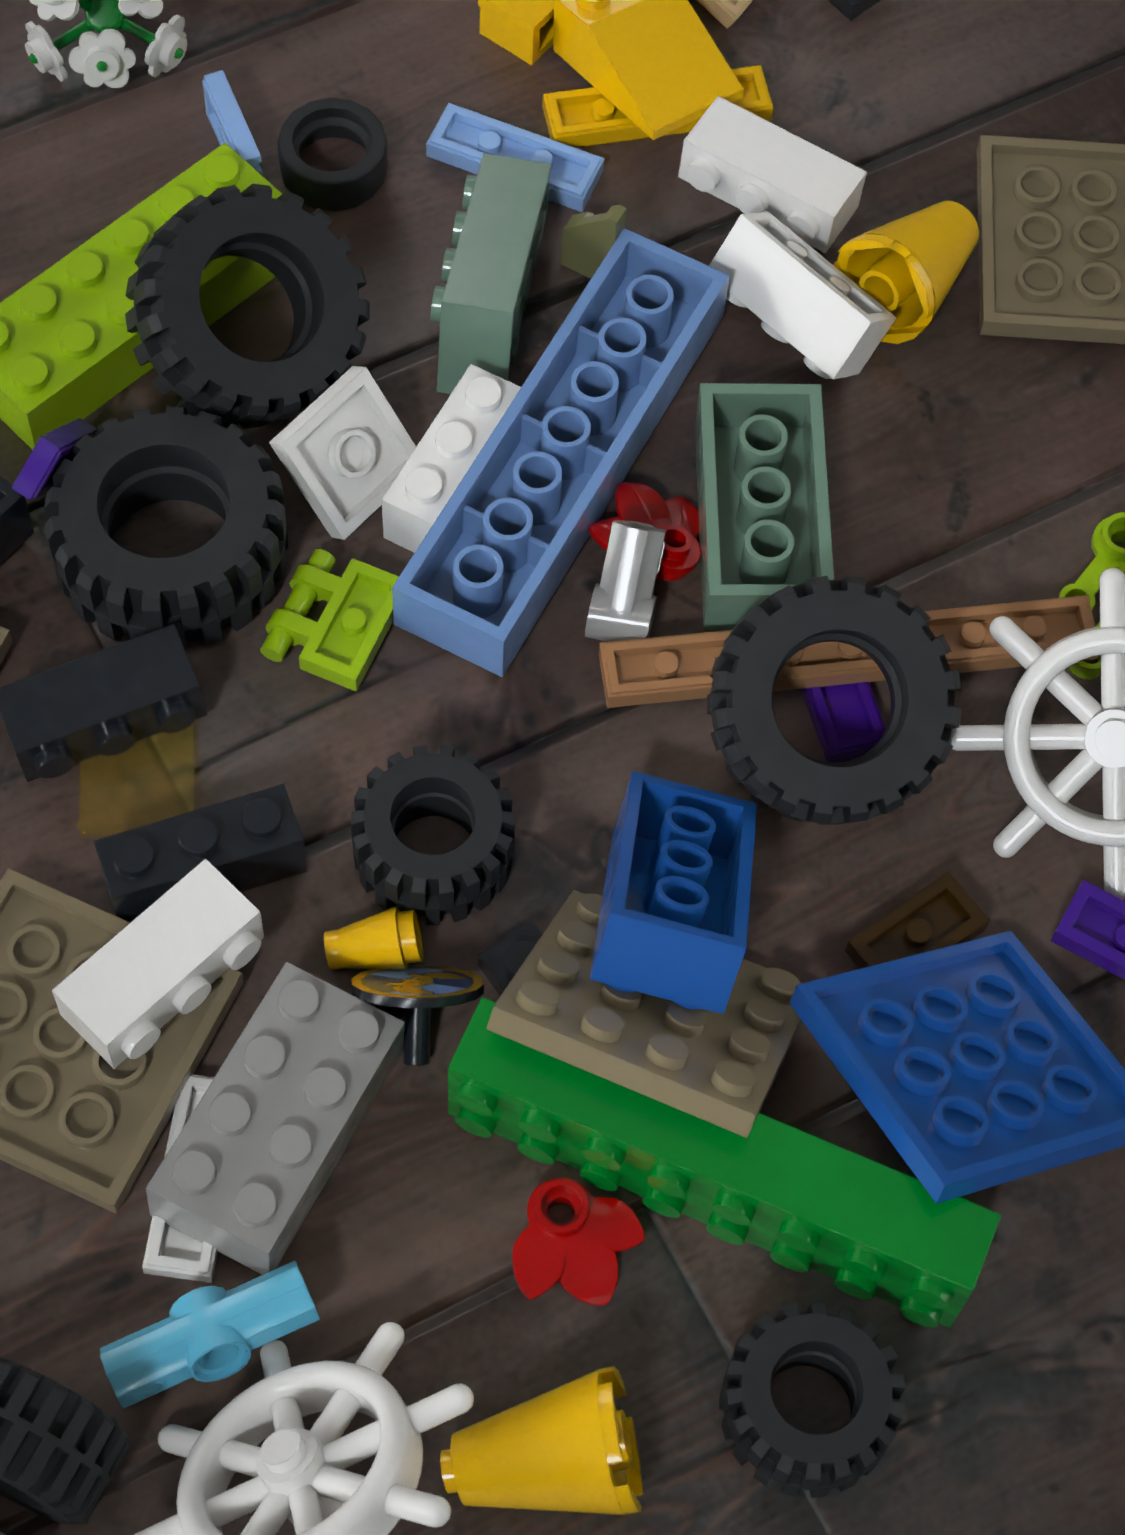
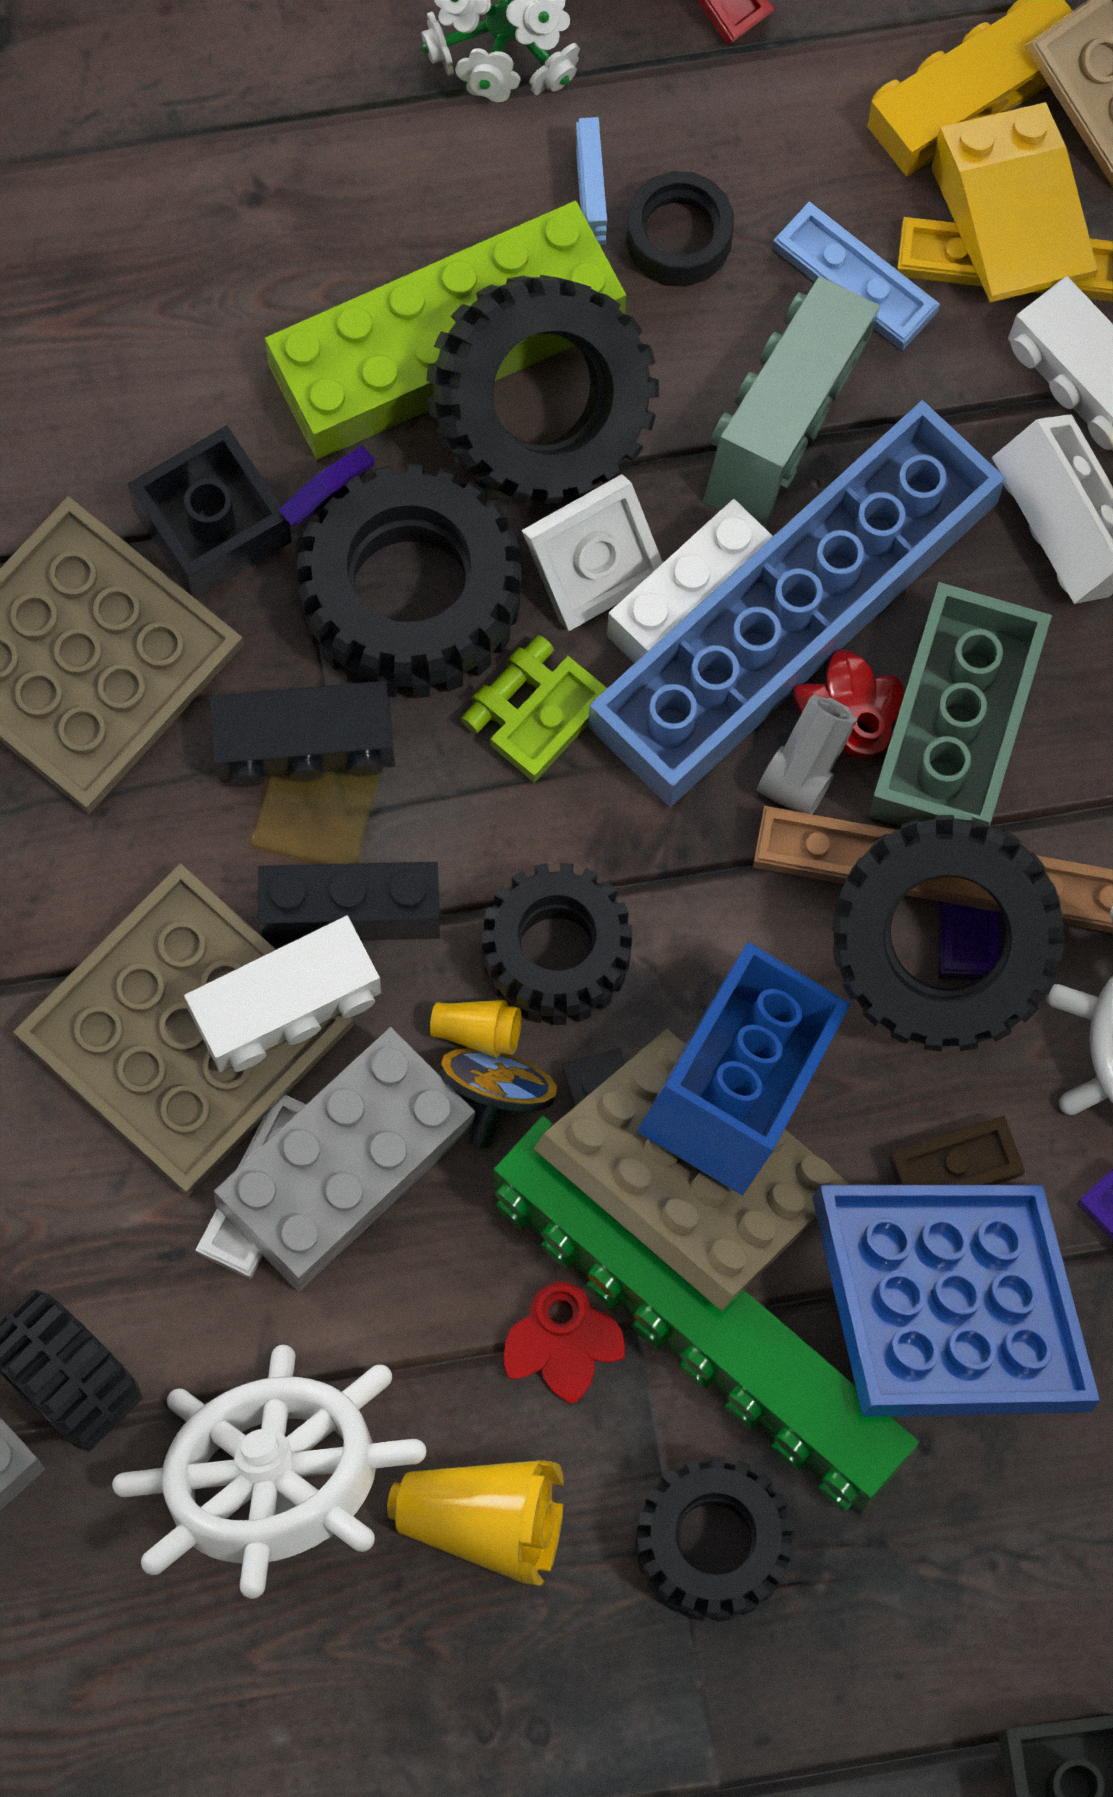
camera: 20 degrees right, 10 degrees up
(208, 1334) = (233, 1325): medium azure piece -> none
(589, 239) = (892, 397): olive tile -> none

